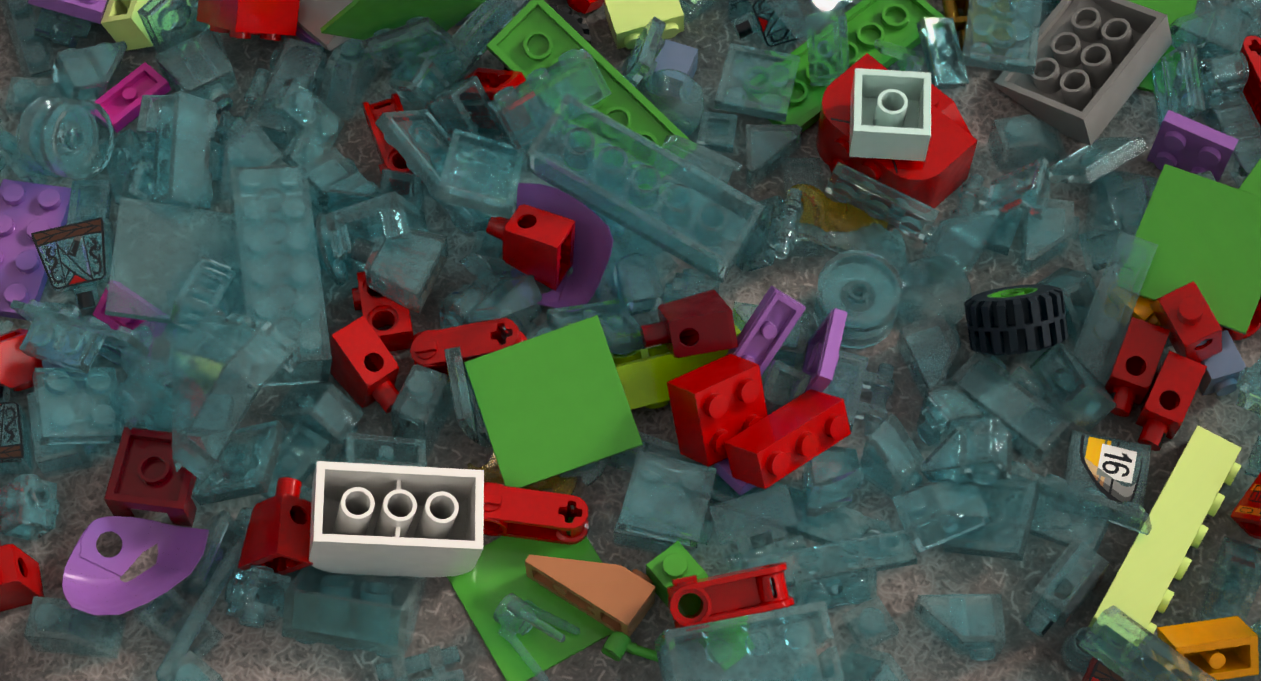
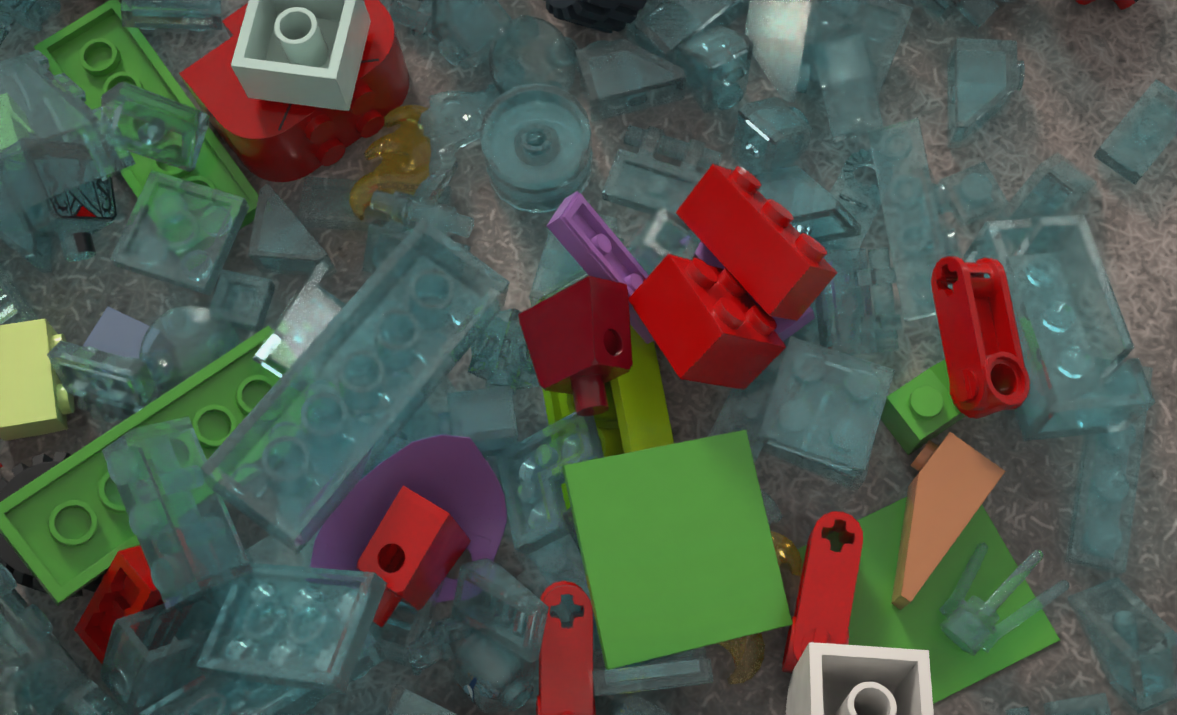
camera: 80 degrees left, 10 degrees up
(619, 643) = (1005, 497): bright green hand -> none
(823, 350) = (626, 188): medium lavender plate -> none
(881, 201) = (397, 101): clear light blue plate -> none
(907, 58) = (188, 42): clear light blue panel -> none

